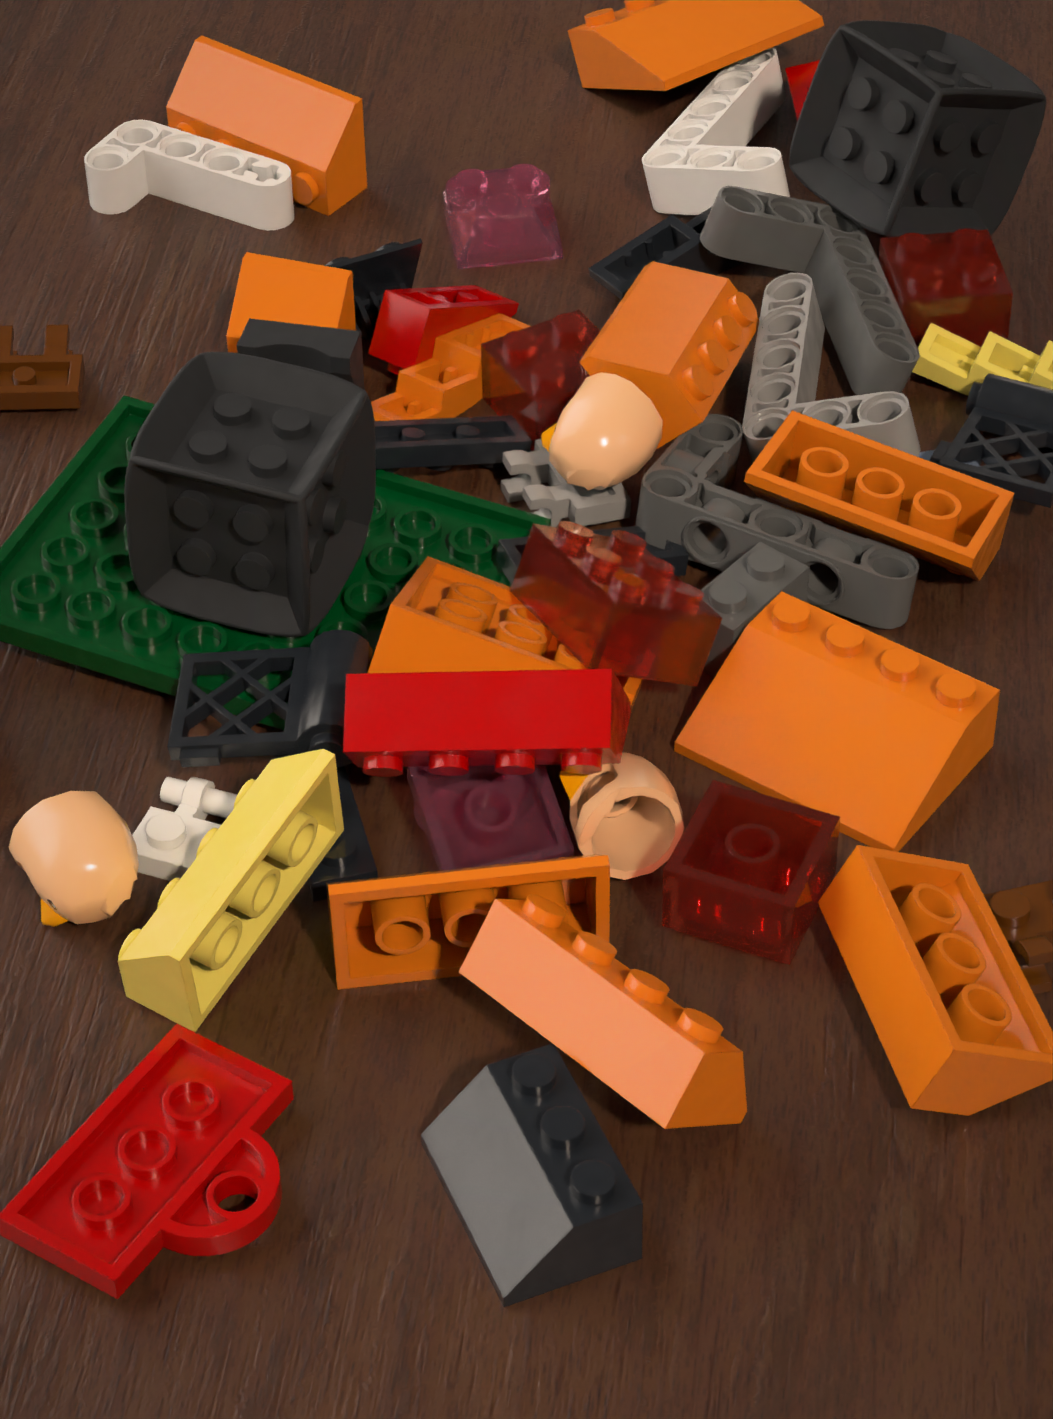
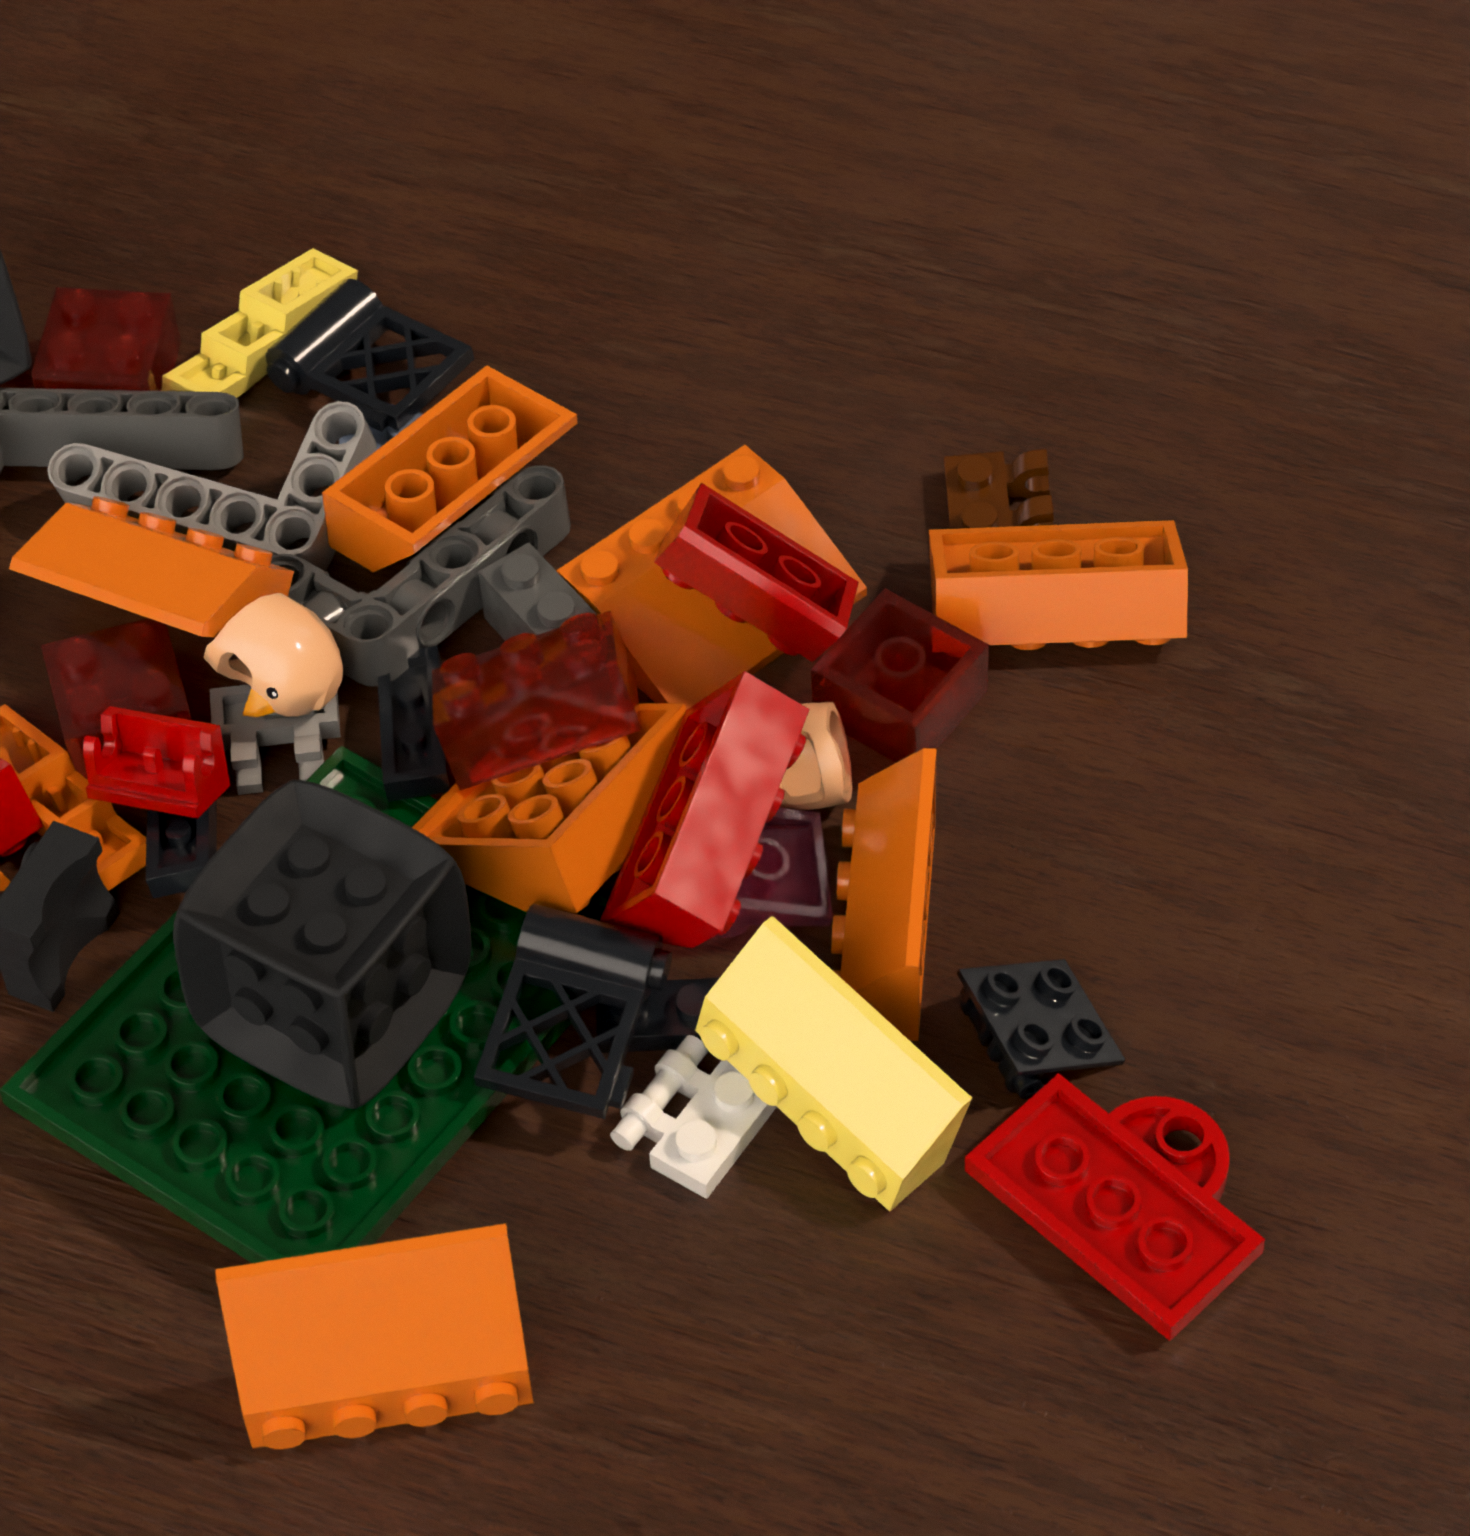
camera: 75 degrees left, 10 degrees up
(76, 857) = (734, 1209): light nougat piece -> none
(363, 1061) = (1035, 1022): none -> black hinge
(463, 398) = (156, 762): none -> red hinge
(534, 1178) = (1203, 911): black slope -> none
(607, 1015) = (1070, 807): orange slope -> none
(810, 705) = (757, 575): none -> red slope

